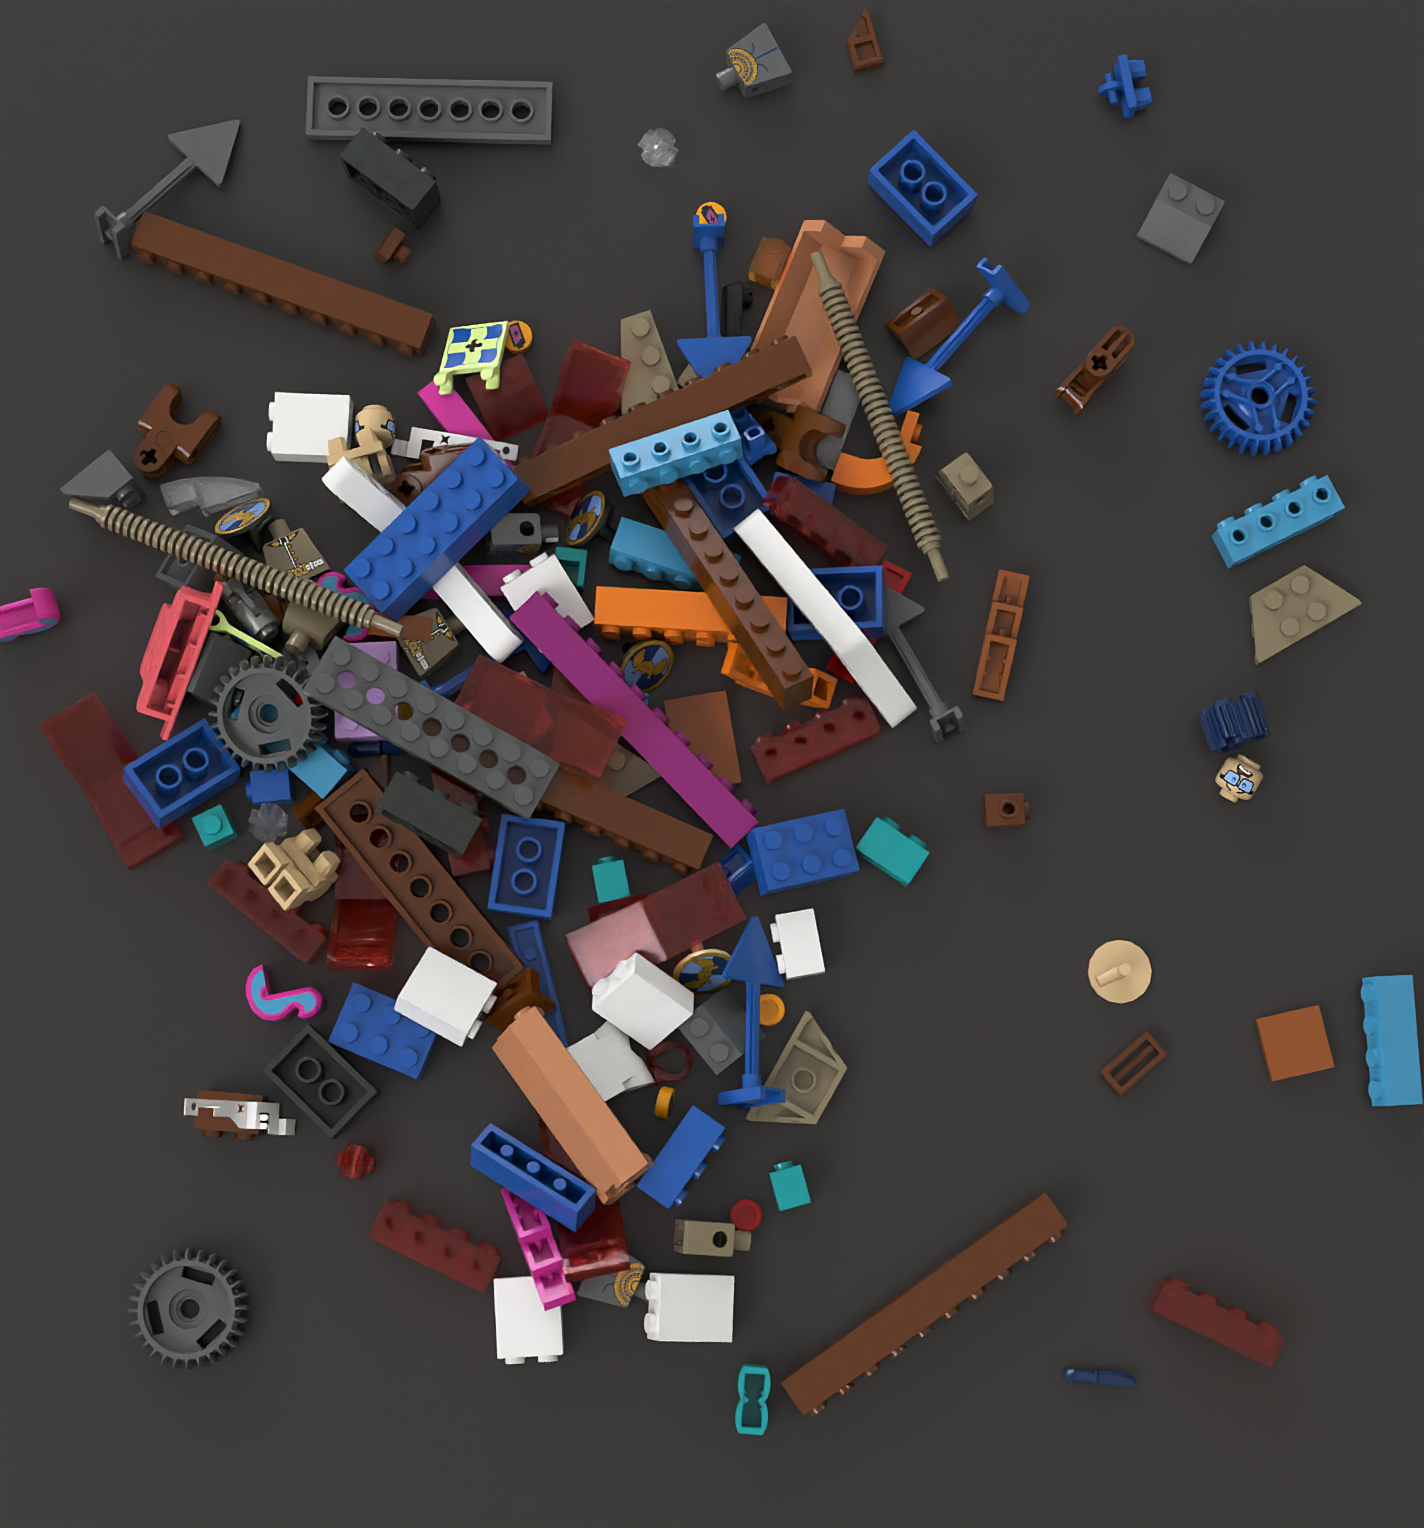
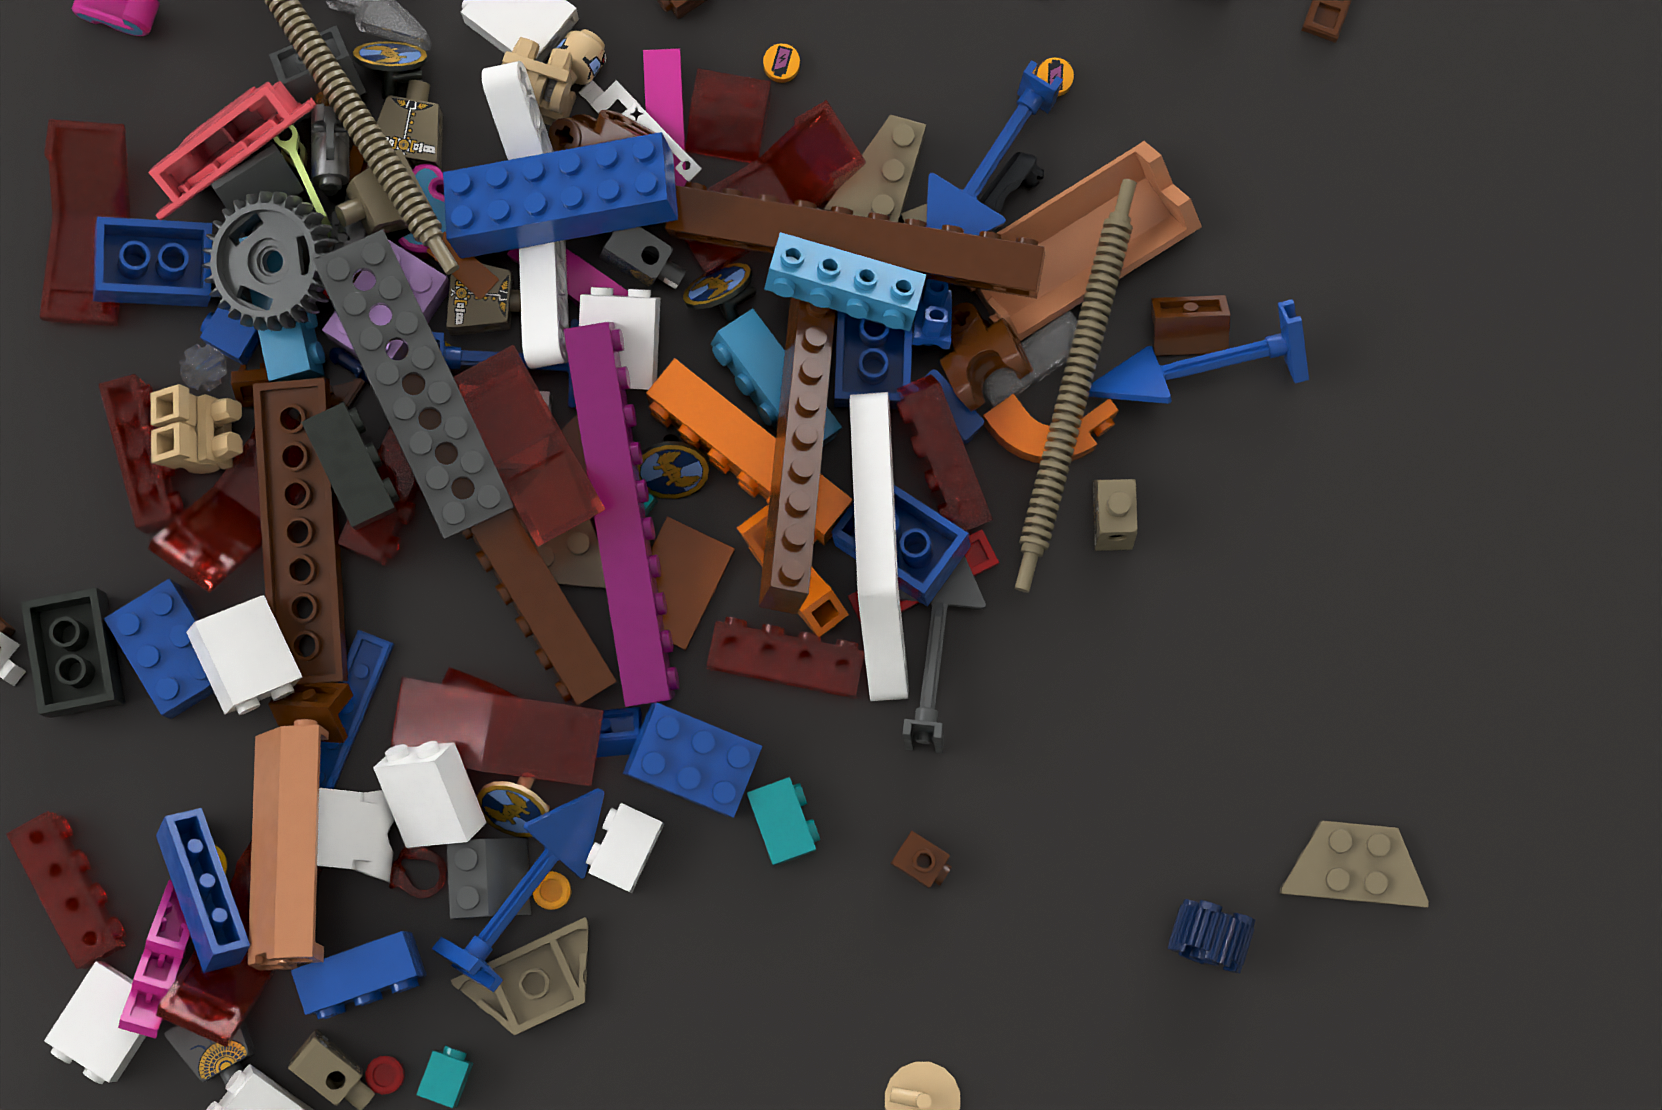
camera: 35 degrees right, 0 degrees up
(215, 827) = (150, 336): teal brick -> none
(280, 1005) = (85, 552): dark pink animal -> none
(355, 1161) = (49, 752): clear red gear -> none
(473, 350) = (726, 46): yellowish green flag -> none
(527, 867) = (416, 585): blue brick -> none
(574, 564) = (674, 324): teal panel -> none
(610, 879) = (489, 655): teal brick -> none
(664, 1102) = (384, 909): light orange tile -> none
(769, 262) = (1080, 157): clear orange brick -> none
(922, 188) = (1283, 189): blue brick -> none
(1000, 634) = (1044, 684): dark orange slope -> none
(1097, 368) = (1327, 488): reddish brown piece -> none
(1130, 98) = (1574, 215): blue hips -> none
(1180, 219) = (1522, 397): dark grey slope -> none
(1239, 778) = (1178, 993): tan head -> none
(1262, 420) = (1459, 655): blue gear -> none
(1278, 521) = (1402, 765): dark azure brick -> none

